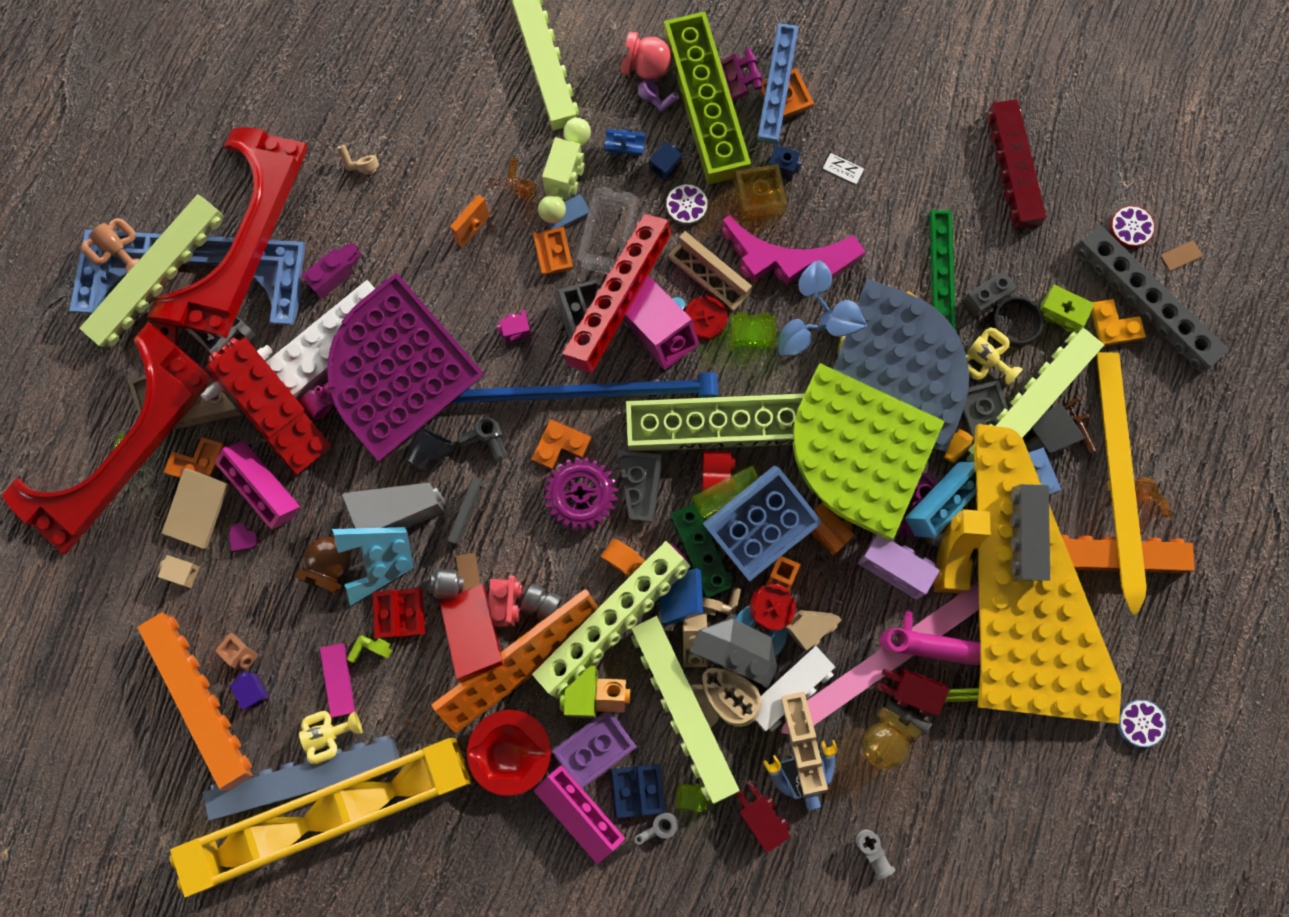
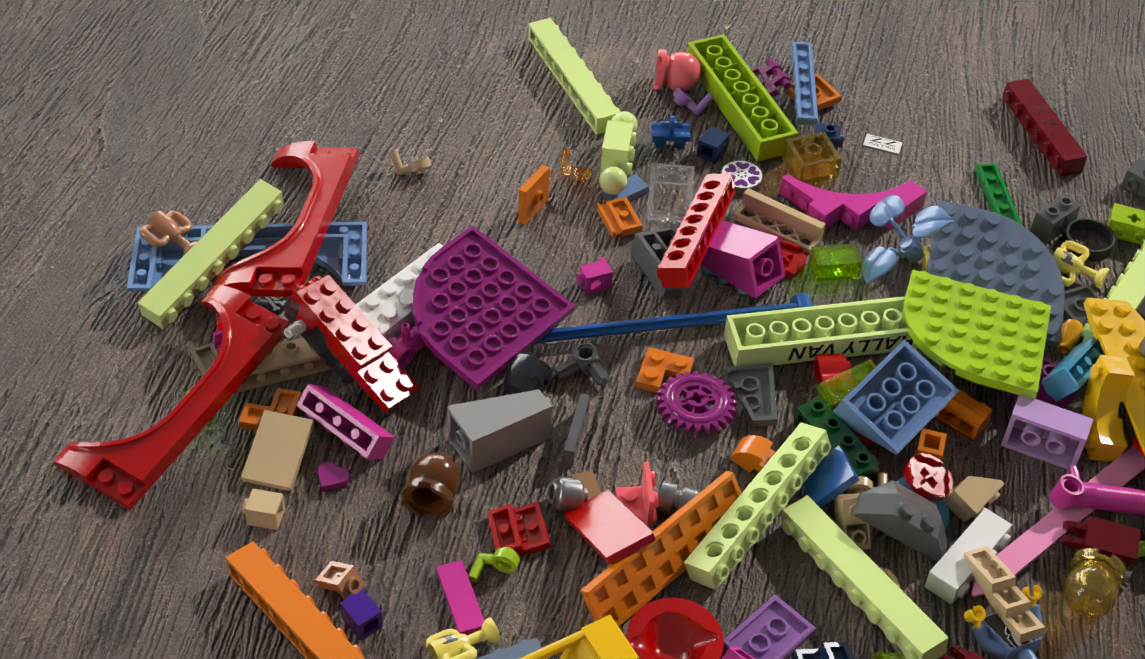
camera: 10 degrees left, 30 degrees down
(331, 270) = (396, 245): magenta hinge -> none
(384, 555) = (498, 466): medium azure wing -> none
(581, 696) = (748, 570): lime slope -> none
(611, 704) = (776, 577): light orange brick -> none
(742, 689) = (910, 561): tan piece -> none

